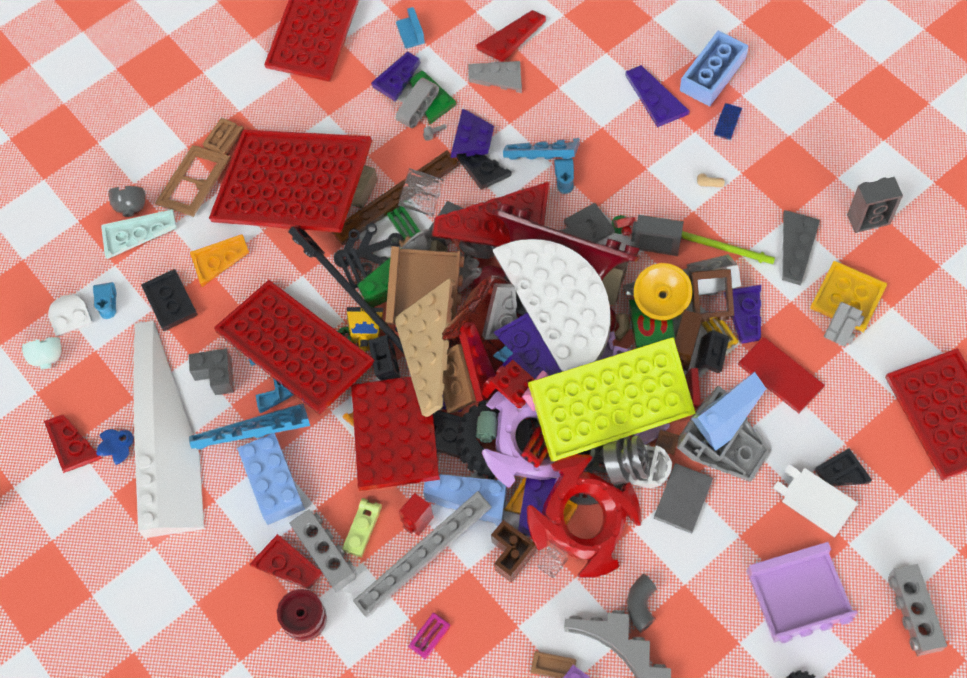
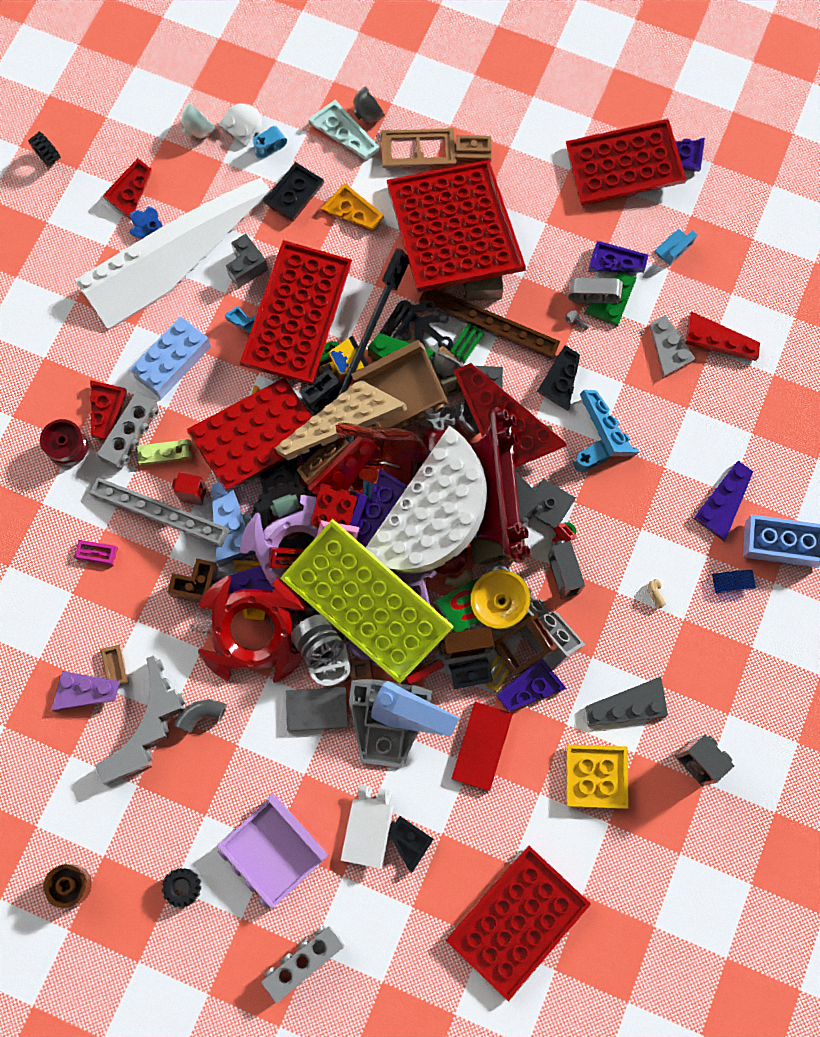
camera: 55 degrees right, 10 degrees up
(257, 427) = (215, 331): dark azure wing -> none
(420, 192) = (503, 340): clear slope -> none
(472, 135) = (587, 355): dark purple wing -> none
(501, 309) = (402, 463): light grey wing -> none
(761, 257) = (598, 676): lime bar -> none
(843, 324) = (559, 782): light grey brick -> none

